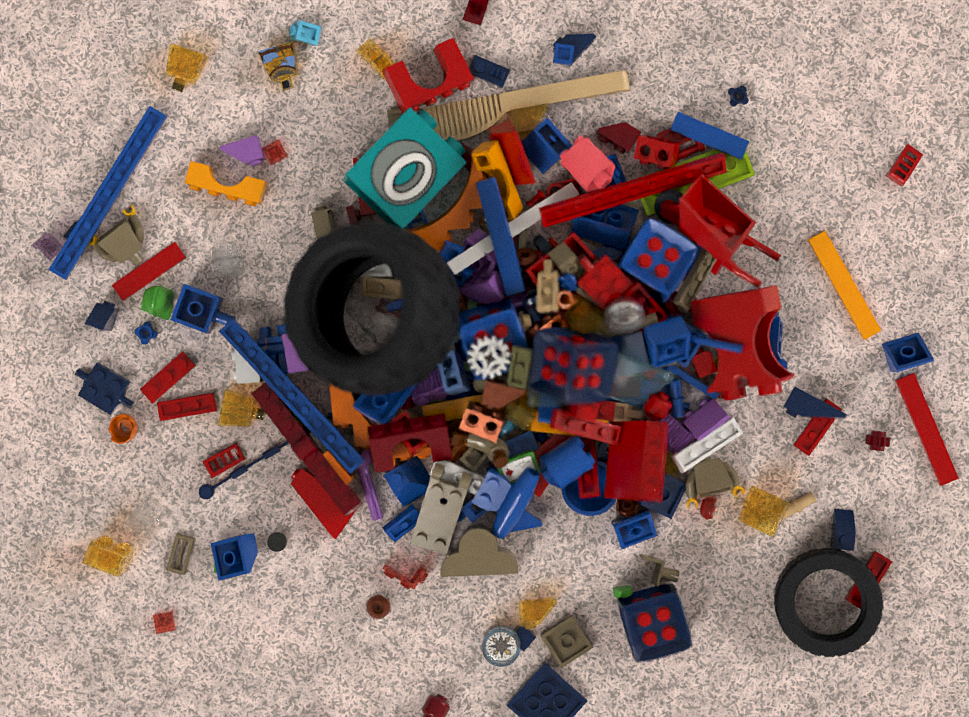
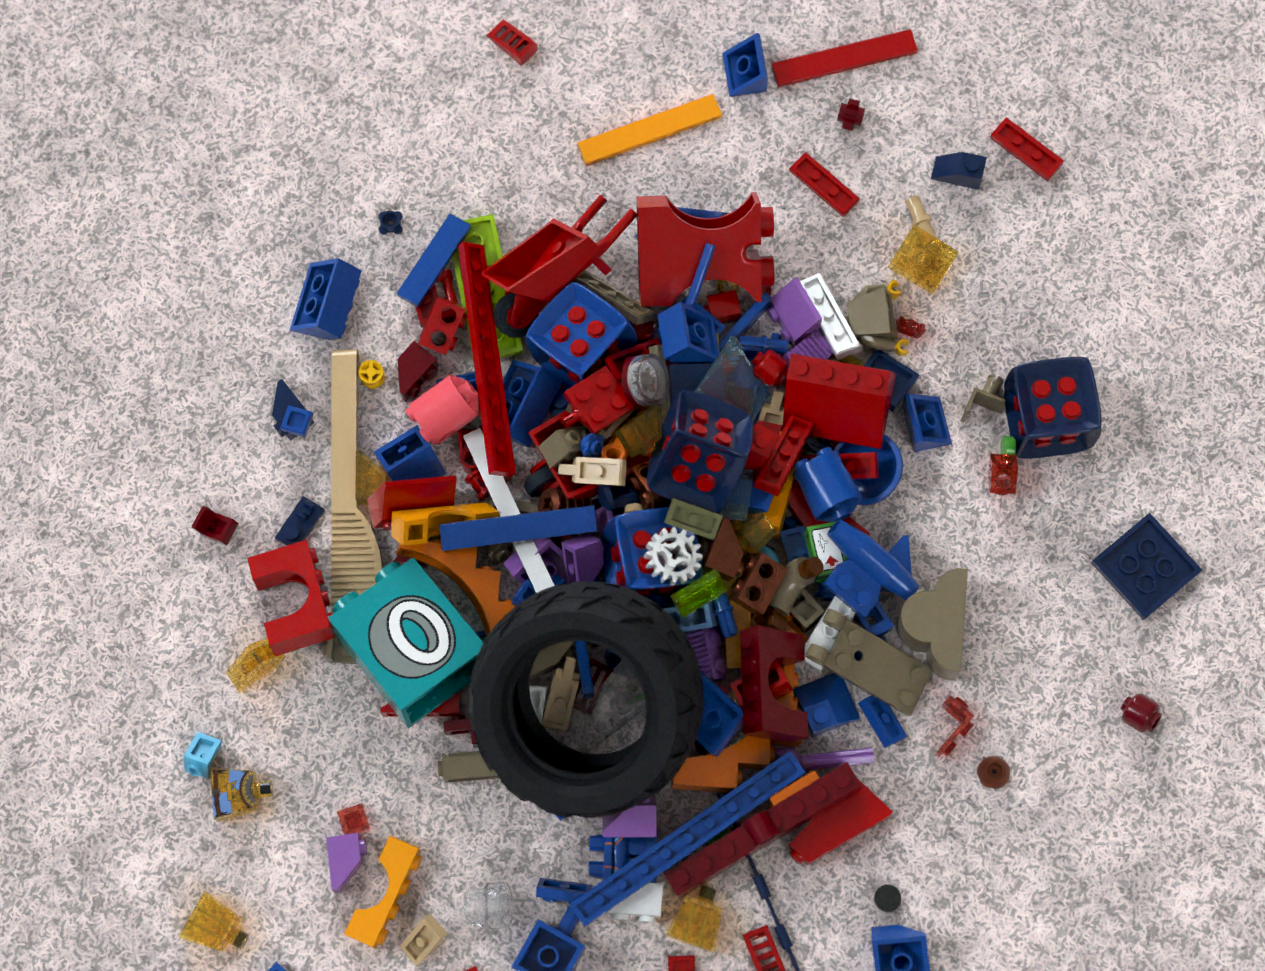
camera: 80 degrees left, 15 degrees down
(196, 217) = (423, 940): none -> tan slope
(246, 310) = (554, 890): none -> blue plate
(459, 398) = (725, 616): none -> blue axle
(466, 379) = (698, 593): none -> clear neon green plate
(501, 646) = (1064, 613): clear piece -> none
(525, 637) = (1056, 586): dark blue tile -> none
(535, 611) = (1022, 563): clear yellow slope -> none
(566, 641) = (1066, 529): dark tan plate -> none
(601, 590) = (999, 465): none -> clear red brick
(611, 101) = (371, 369): none -> yellow wheel
(627, 511) = (903, 428): copper plate -> none
(667, 57) = (326, 299): none -> blue slope
(808, 406) = (795, 189): dark blue slope -> none
(835, 644) = (1077, 151): black tyre -> none

